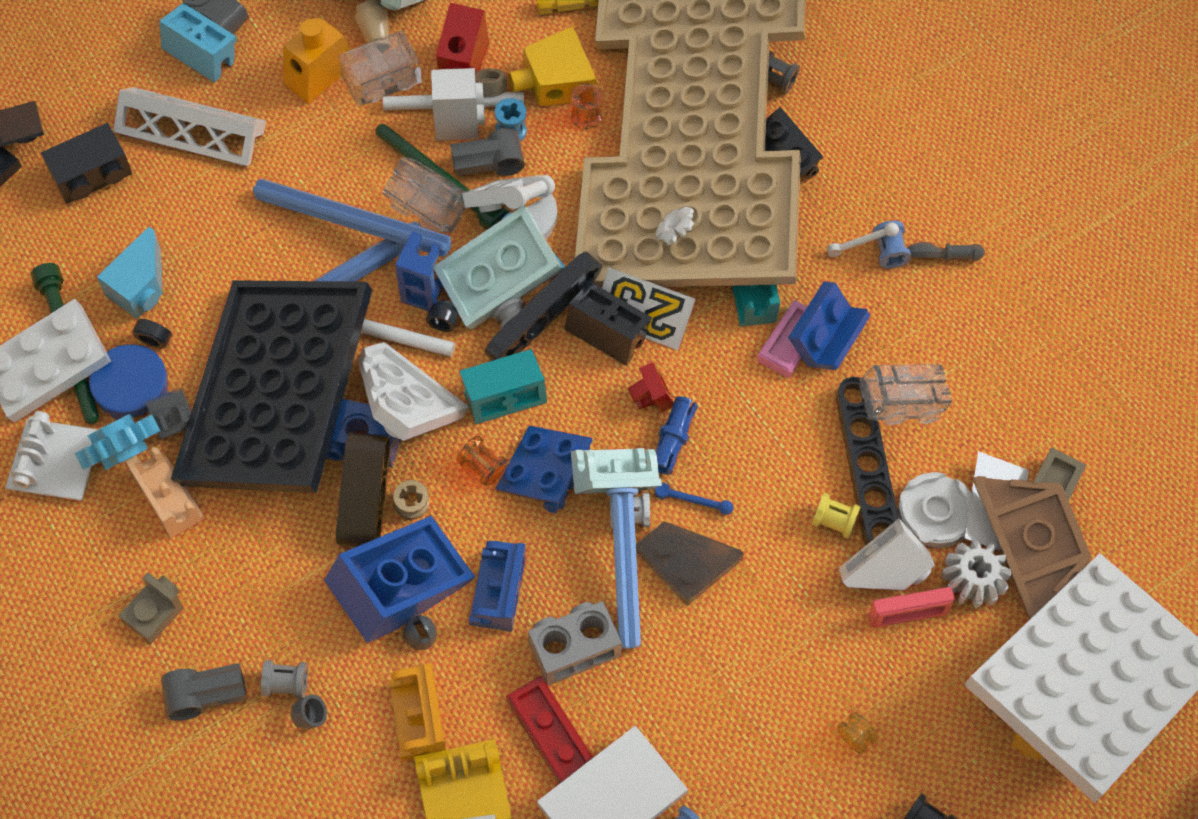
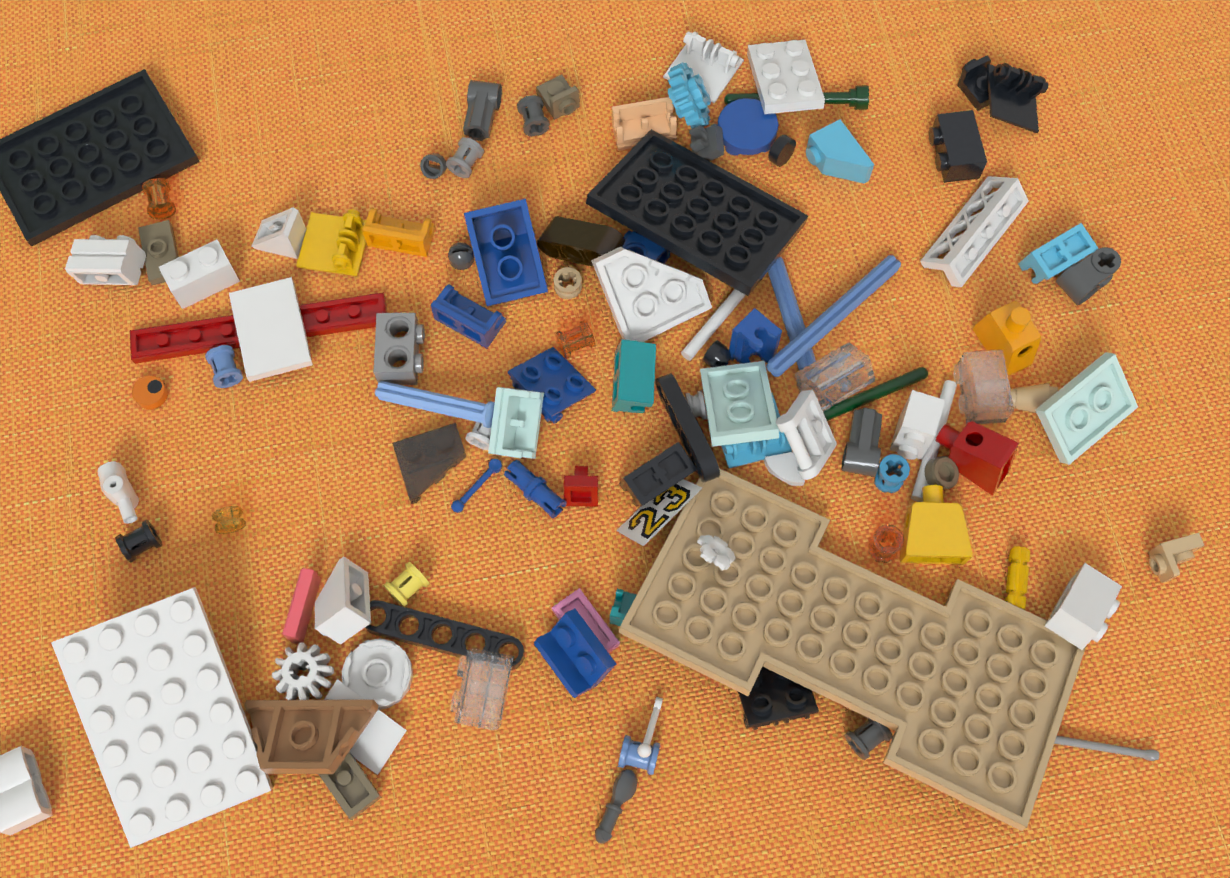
camera: 115 degrees right, 5 degrees up
(194, 623) = (533, 115): none -> dark grey bush

